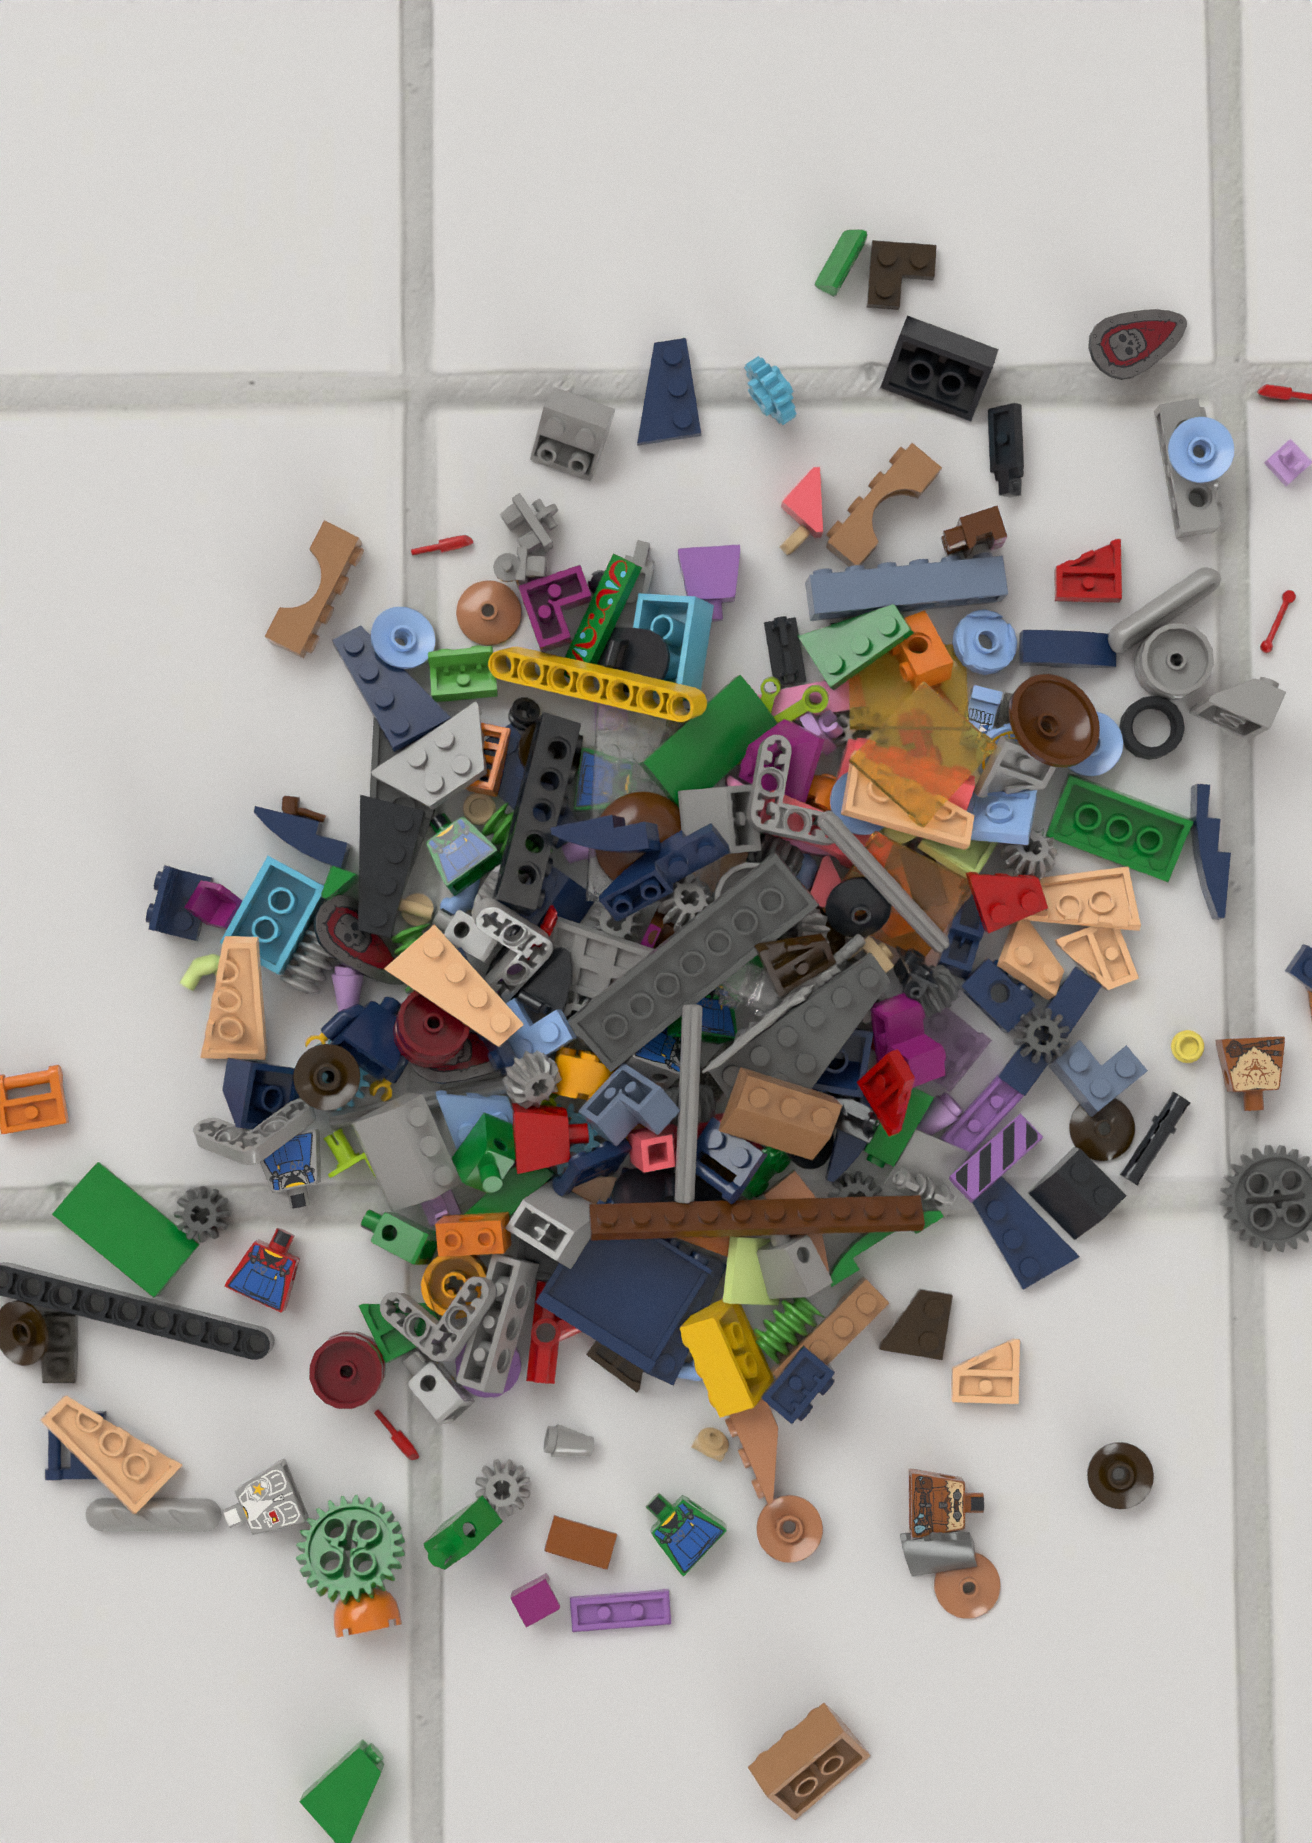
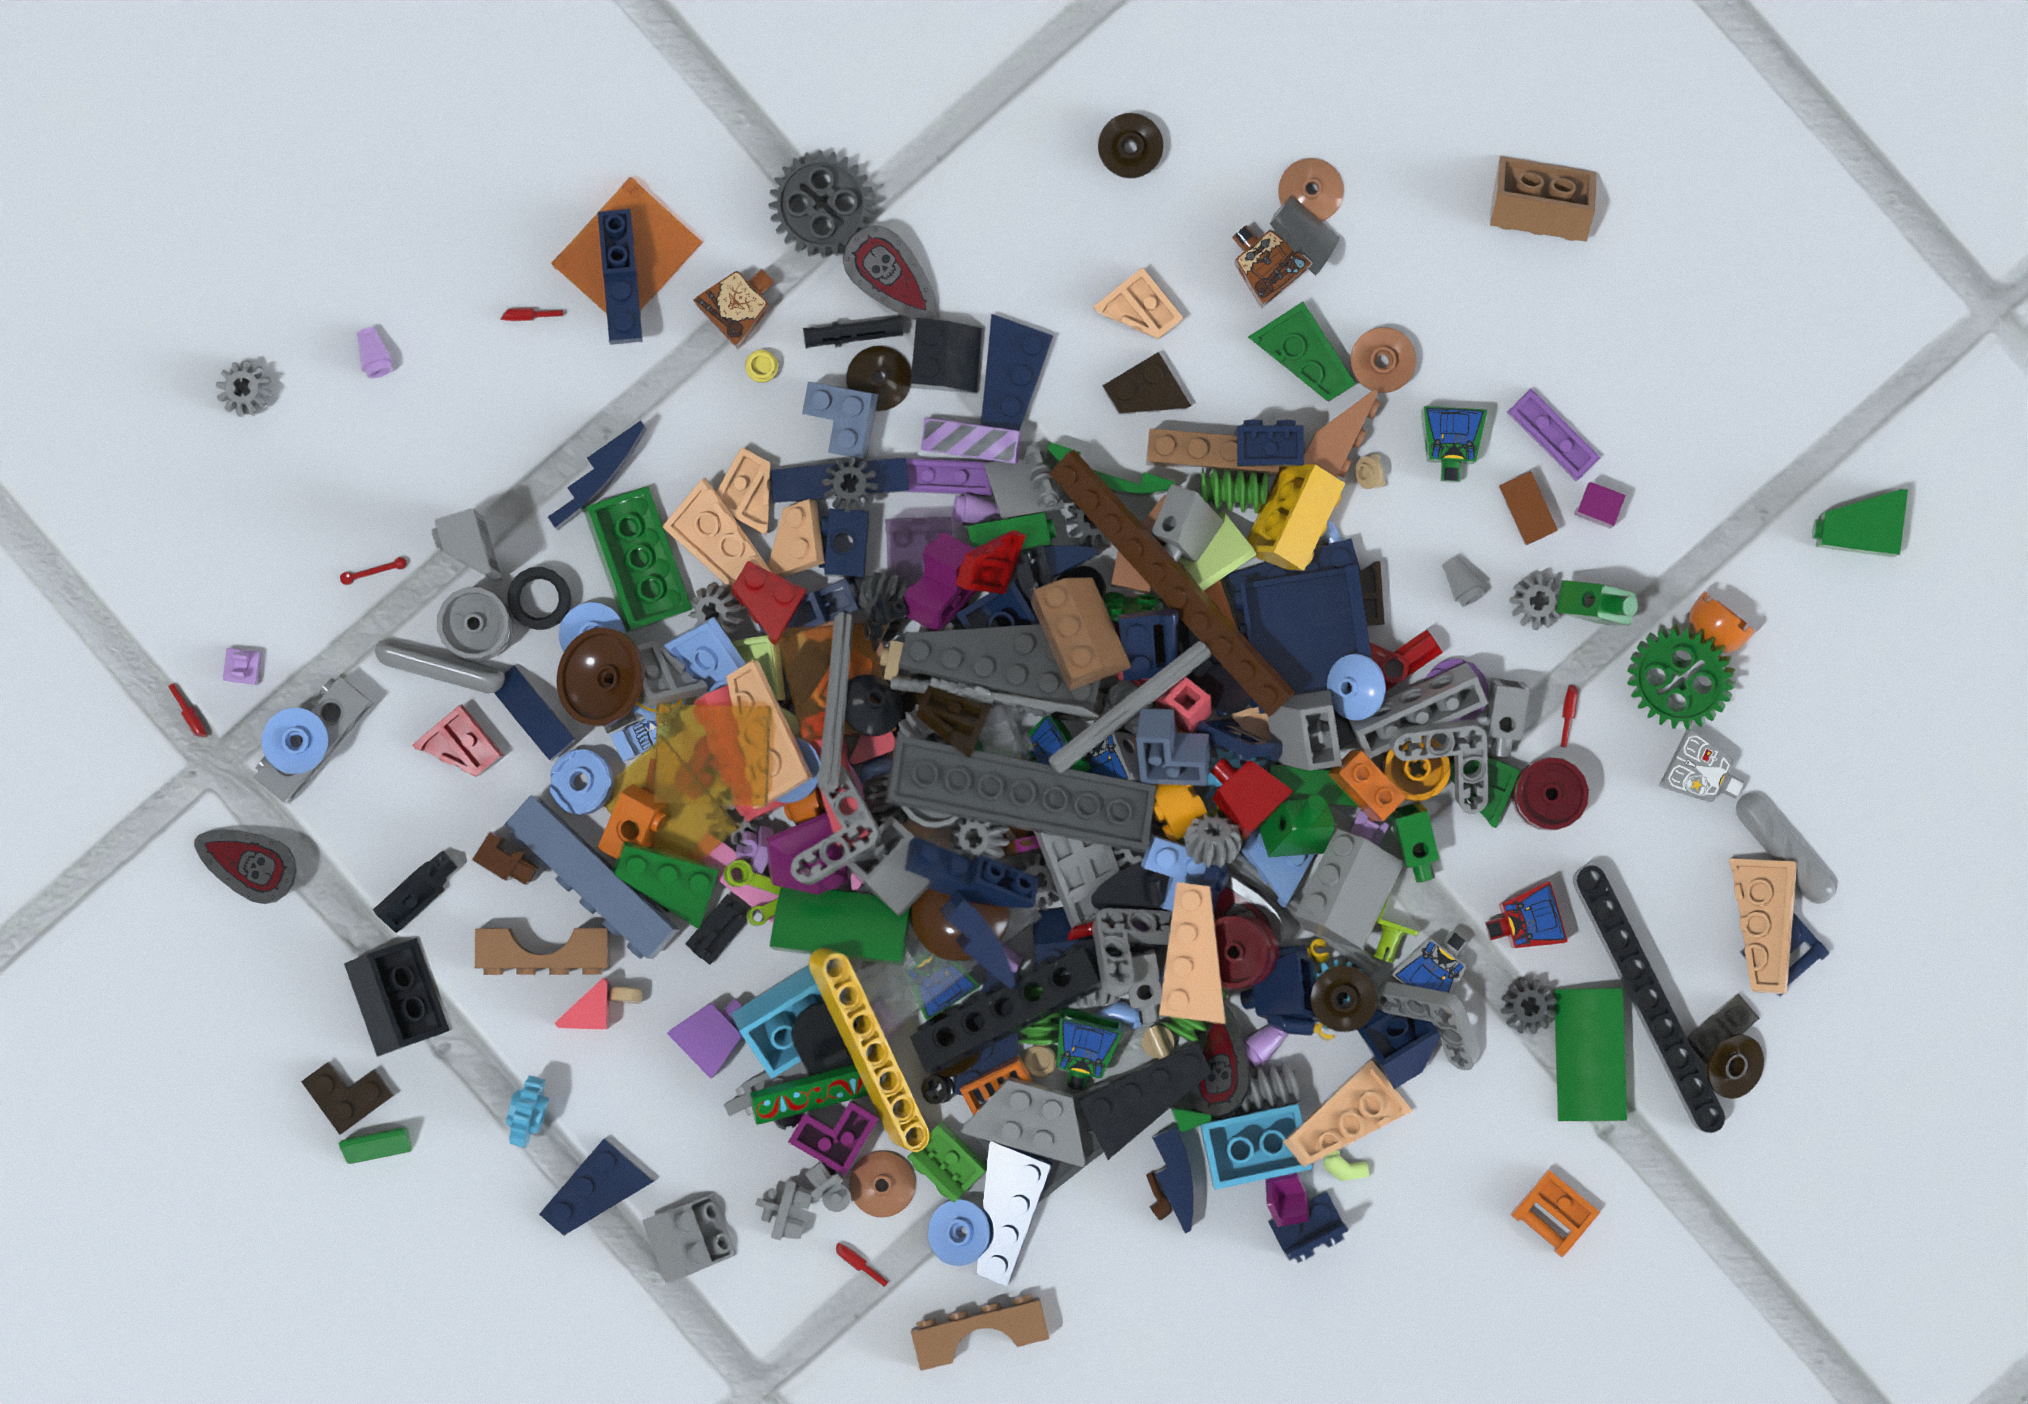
camera: 130 degrees left, 0 degrees up
(550, 1301) = (1366, 683): none -> light blue dish
(847, 1473) = (1305, 351): none -> green wing
(1178, 1205) = (889, 272): none -> shield

